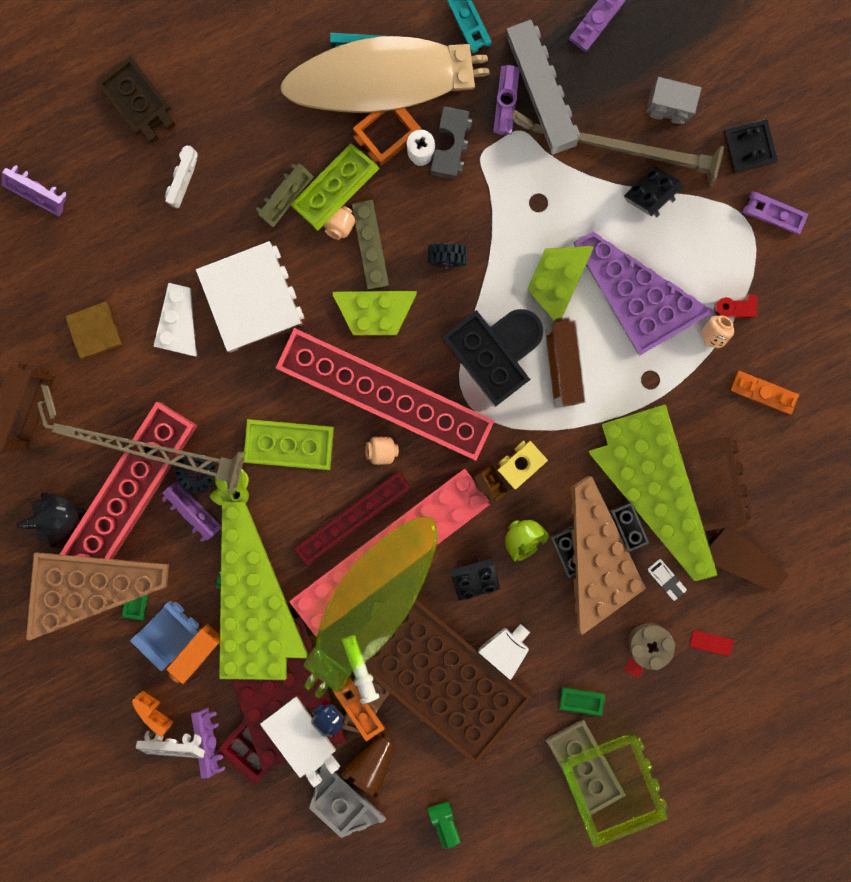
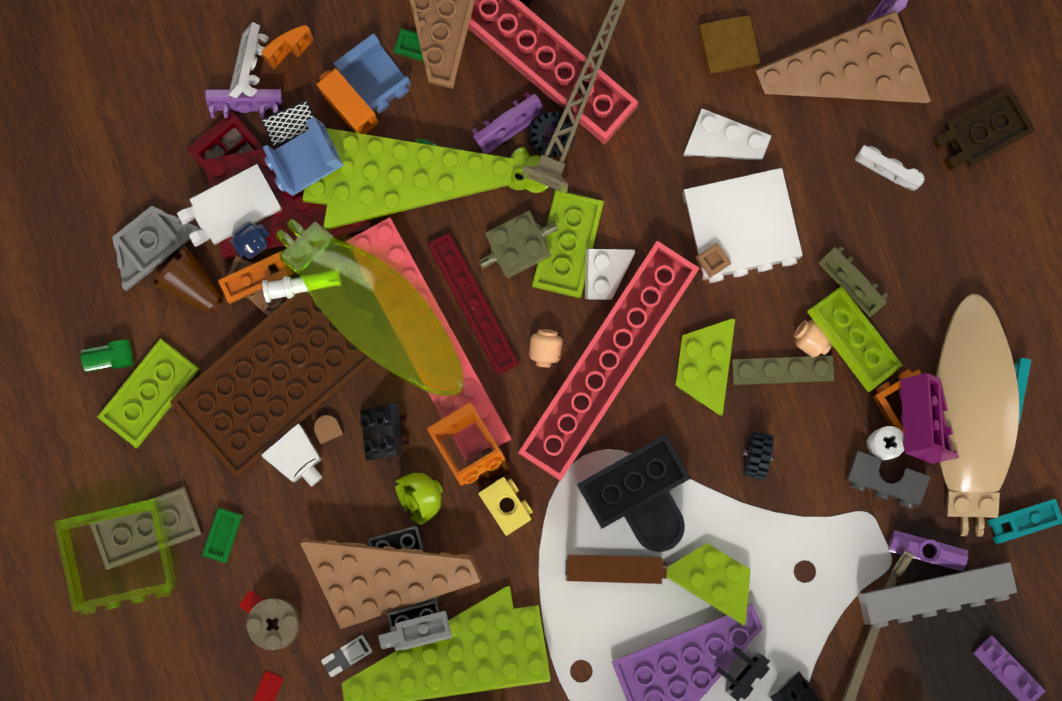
camera: 100 degrees right, 5 degrees down
(95, 218) = (856, 64): none -> medium nougat wing
(220, 700) = (287, 123): none -> black panel
(249, 684) = (303, 159): none -> medium blue panel
(285, 317) = (713, 260): none -> medium nougat tile
(295, 487) = (518, 244): none -> olive plate
(308, 409) = (605, 271): none -> white wing
(397, 116) = (924, 419): none -> magenta wedge
(460, 518) = (455, 423): none -> orange window
(470, 784) = (148, 393): none -> lime tile
(478, 626) = (327, 429): none -> medium nougat tile
(629, 233) = (755, 669): none -> black plate
(642, 523) = (417, 632): none -> light grey hinge

